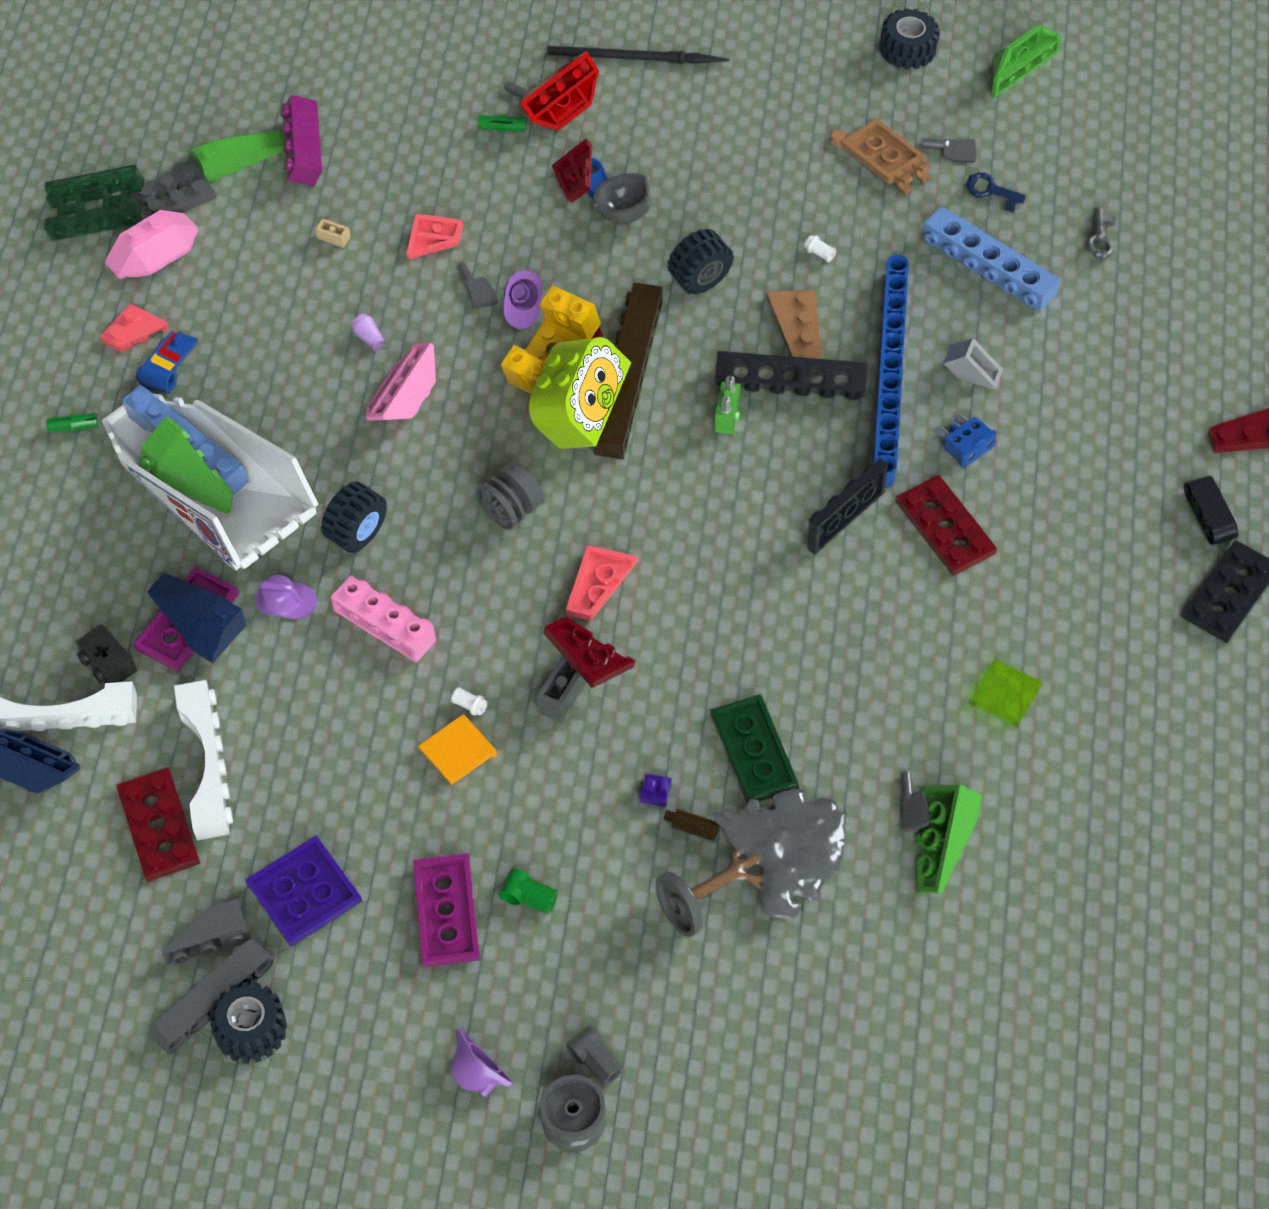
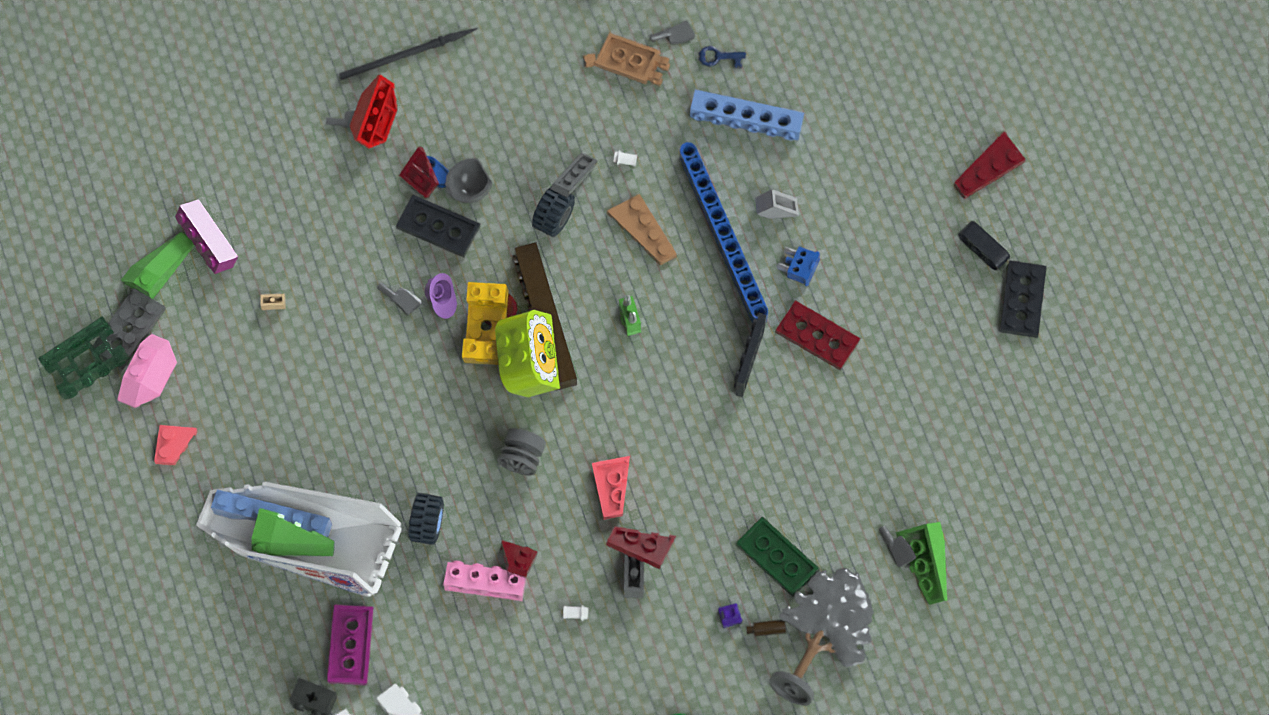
camera: 30 degrees left, 10 degrees up
(72, 422) = (176, 537): green axle -> none
(160, 368) = (215, 458): blue door -> none
(200, 616) = (360, 640): dark blue wedge -> none
(285, 598) = (407, 597): medium lavender piece -> none
(367, 331) = (345, 369): lavender cone -> none
(405, 385) = (397, 402): bright pink wedge -> none
(433, 235) = (346, 270): coral wing -> none
(437, 610) = (518, 558): none -> dark red wing
(457, 749) = (587, 649): light orange piece -> none
(499, 123) = (342, 155): green pin -> none
(559, 244) = (435, 214): none -> black plate
(746, 234) = (574, 174): none -> dark grey tile
(854, 371) = (703, 249): black brick -> none
(1006, 693) = (917, 440): clear neon green tile -> none
(1099, 236) = (804, 47): dark grey piece -> none

